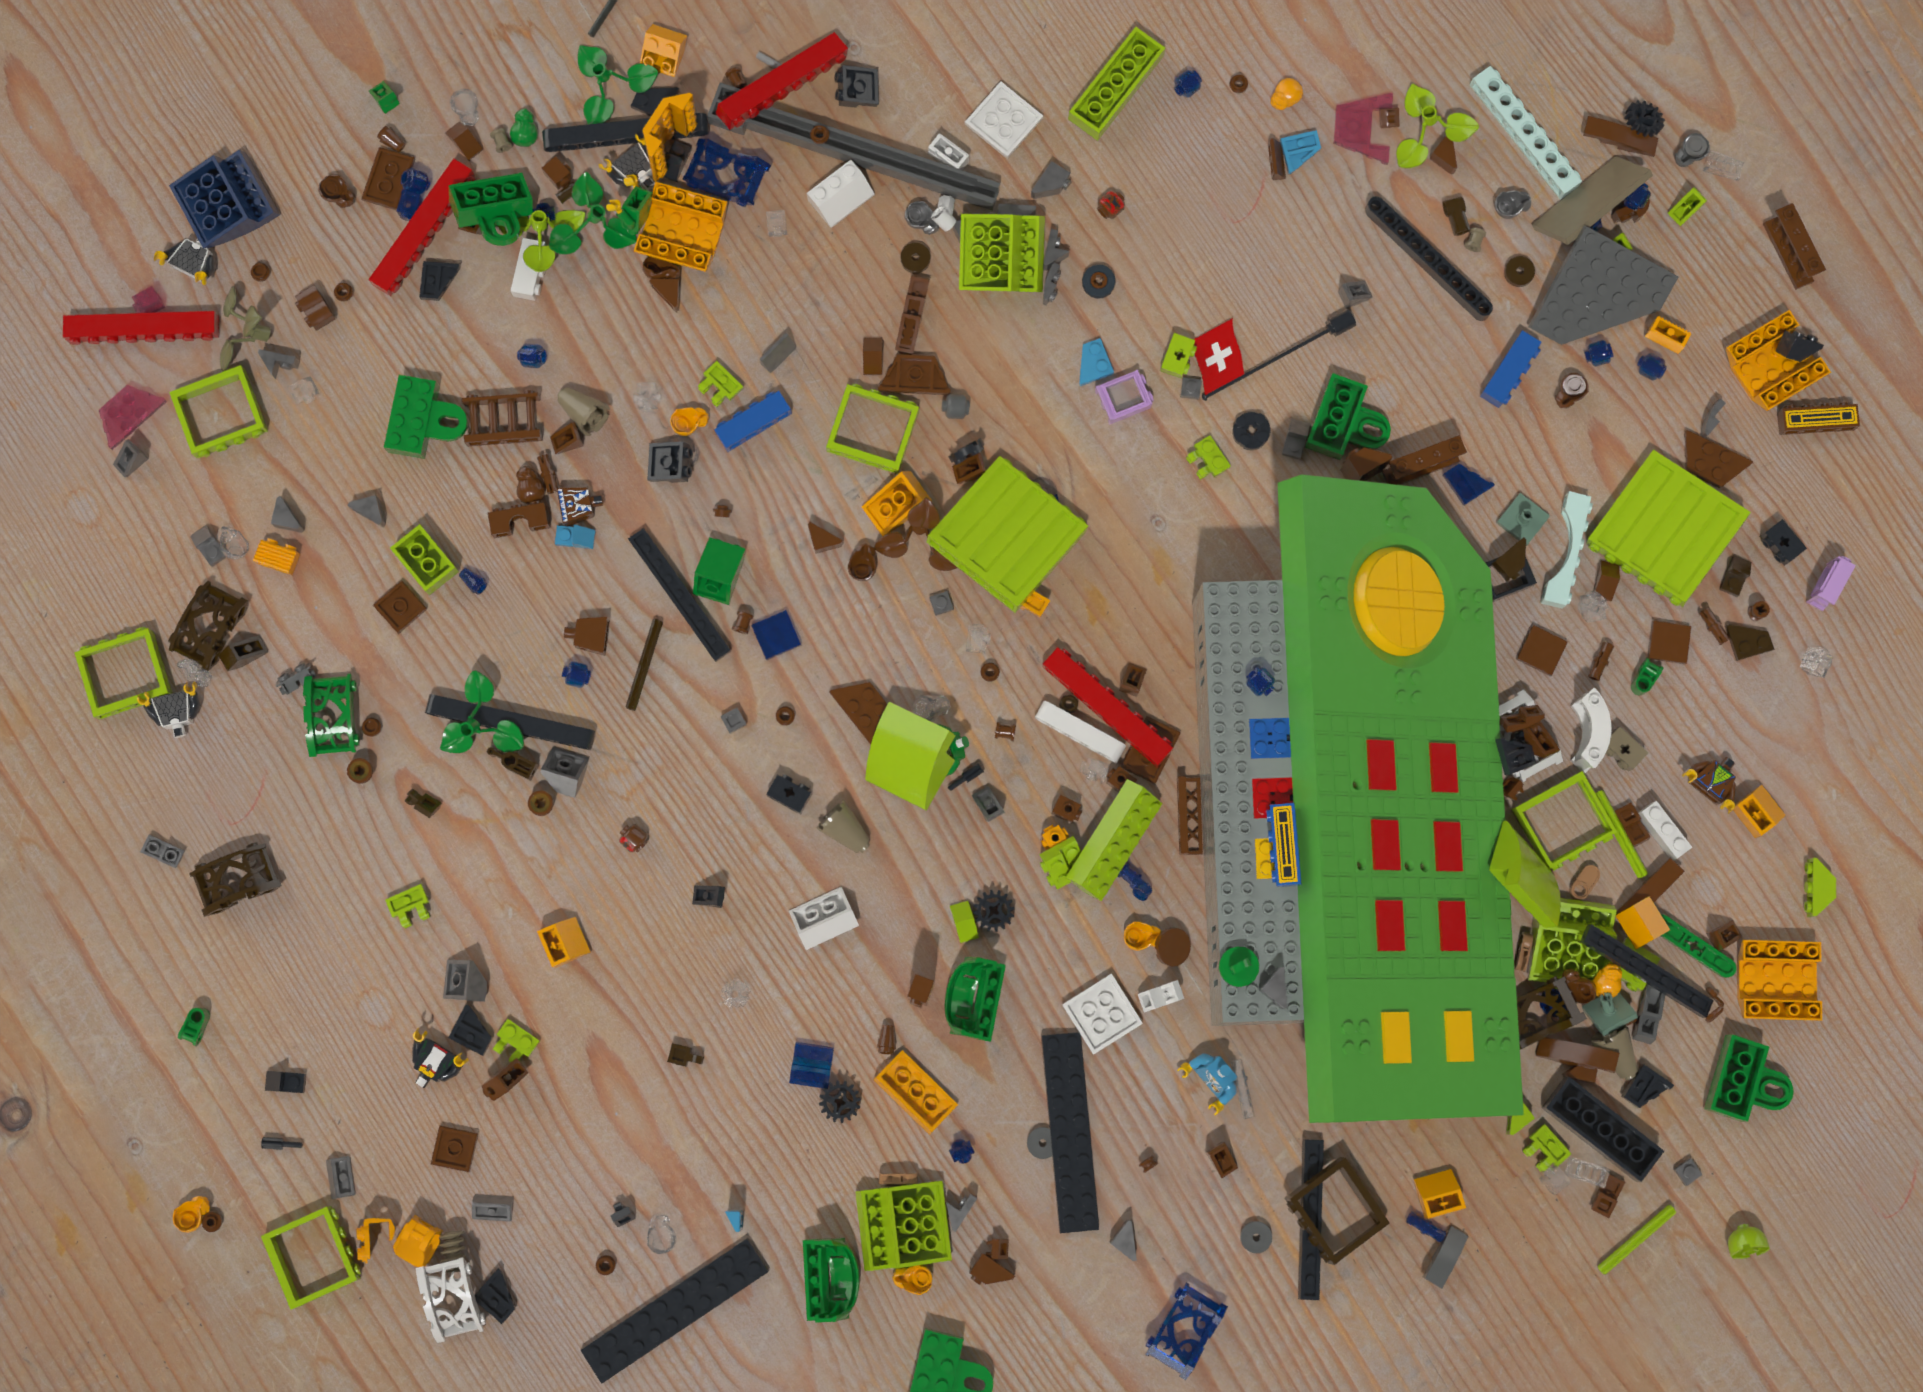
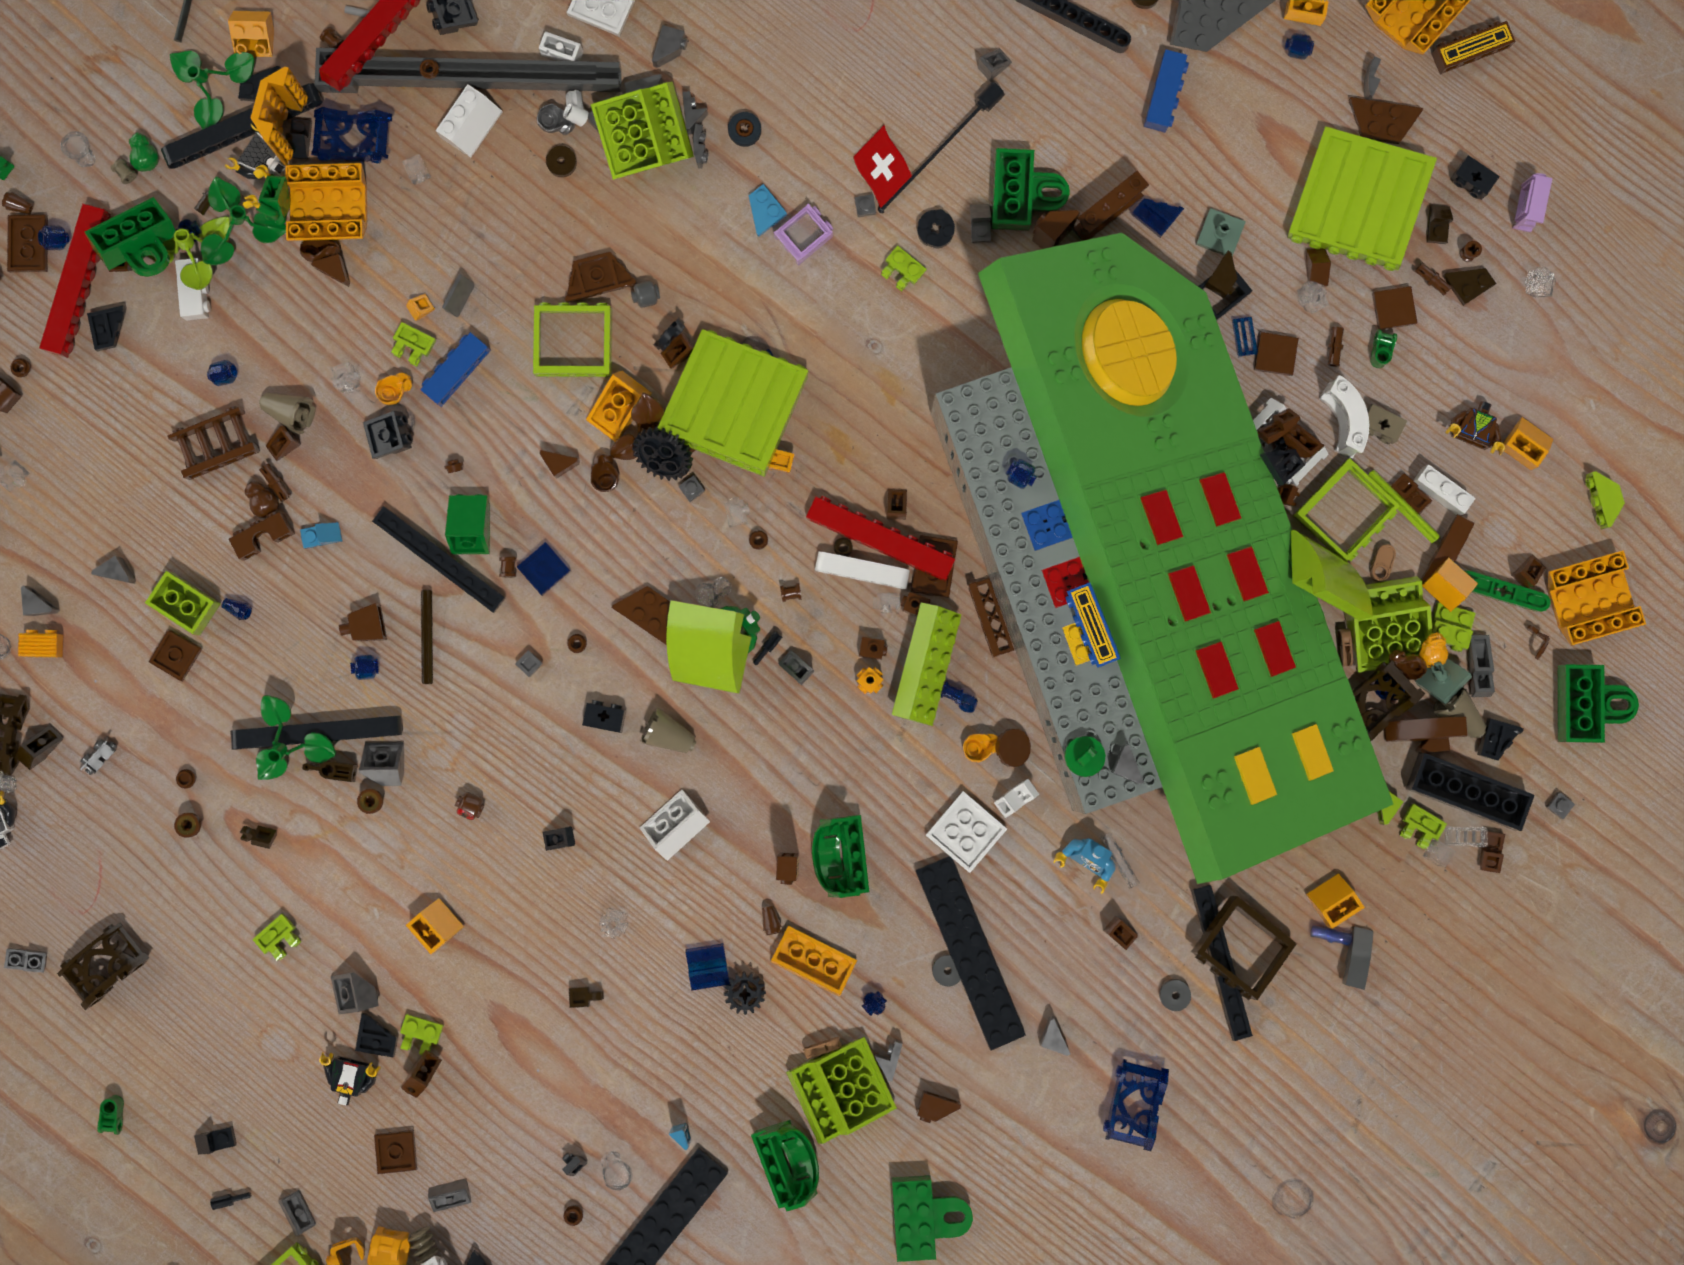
camera: 10 degrees left, 5 degrees up
(312, 692) = (117, 765): green fence -> none
(411, 198) = (52, 256): clear blue brick -> none
(417, 418) = (131, 468): green brick -> none
(464, 140) = (89, 183): reddish brown slope -> none
(557, 172) = (189, 186): reddish brown brick -> none
(577, 504) = (312, 503): torso -> none
(738, 352) = (419, 306): none -> light orange slope
(872, 356) = (550, 270): reddish brown slope -> none
(912, 314) = (575, 217): reddish brown slope -> none
(913, 1279) = (867, 1138): light orange hair -> none
(925, 561) = (662, 453): none -> black gear
(964, 921) = (808, 785): lime slope -> none
(986, 905) = (829, 779): black gear -> none
(999, 1248) = (938, 1083): reddish brown tile -> none
(1059, 861) = (881, 700): lime plate -> none
(1111, 205) = (733, 50): reddish brown head -> none
(1148, 1163) = (1053, 959): reddish brown bush -> none
(1171, 364) = (842, 166): lime brick -> none
(1514, 640) = (1237, 336): none -> clear blue tile
(1572, 389) = (1230, 91): reddish brown hair -> none
(1574, 513) = (1268, 211): light aqua arch -> none
(1599, 353) = (1245, 48): clear blue head -> none
(1637, 1239) = (1531, 884): lime axle -> none
(1646, 971) = (1467, 629): black plate -> none
(1747, 1241) = (1636, 853): lime cylinder -> none

